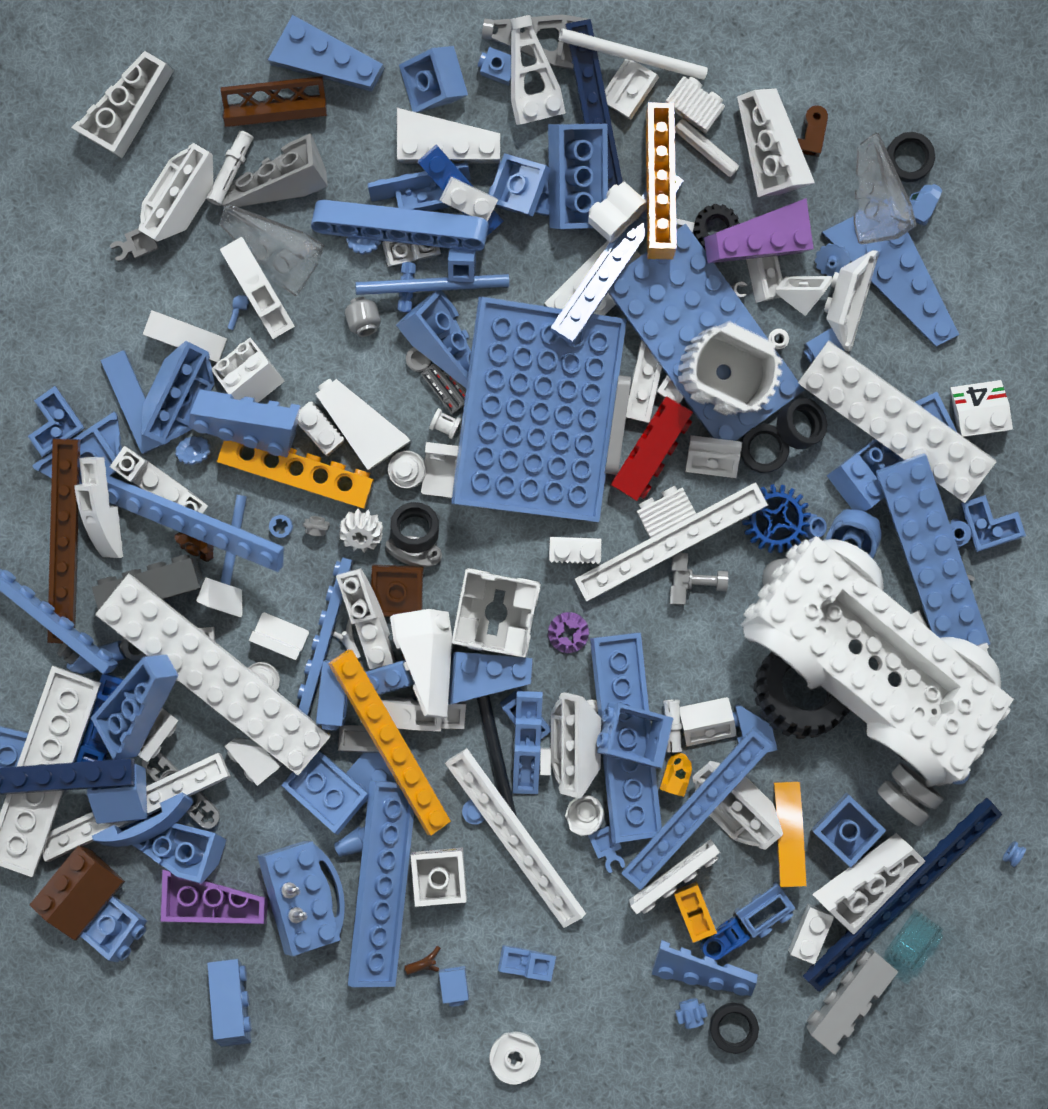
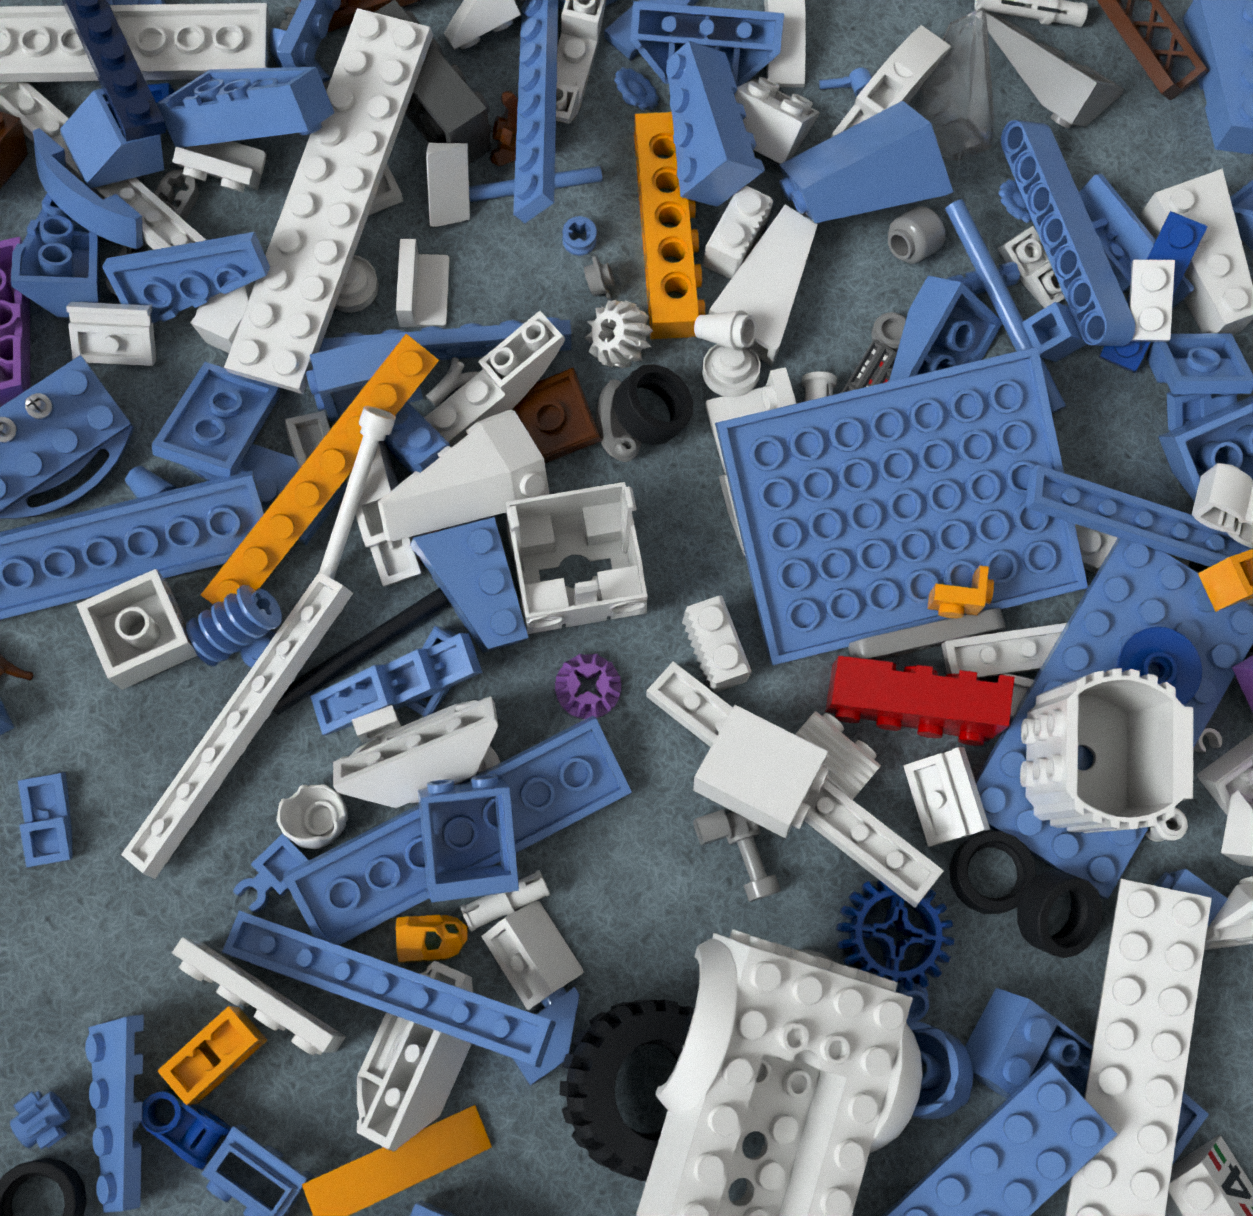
camera: 65 degrees right, 15 degrees down
(229, 786) = (186, 273): none -> medium blue wing
(243, 834) = (112, 333): none -> white plate
(312, 334) = (868, 167): none -> medium blue slope
(379, 701) = (375, 426): none -> white piece
(387, 465) = (727, 329): none -> white cone
(458, 822) = (233, 624): none -> medium blue piece
(608, 405) = (957, 600): none -> light orange bracket
(662, 559) = (761, 772): none -> white brick
(704, 301) = (1171, 653): none -> blue dish

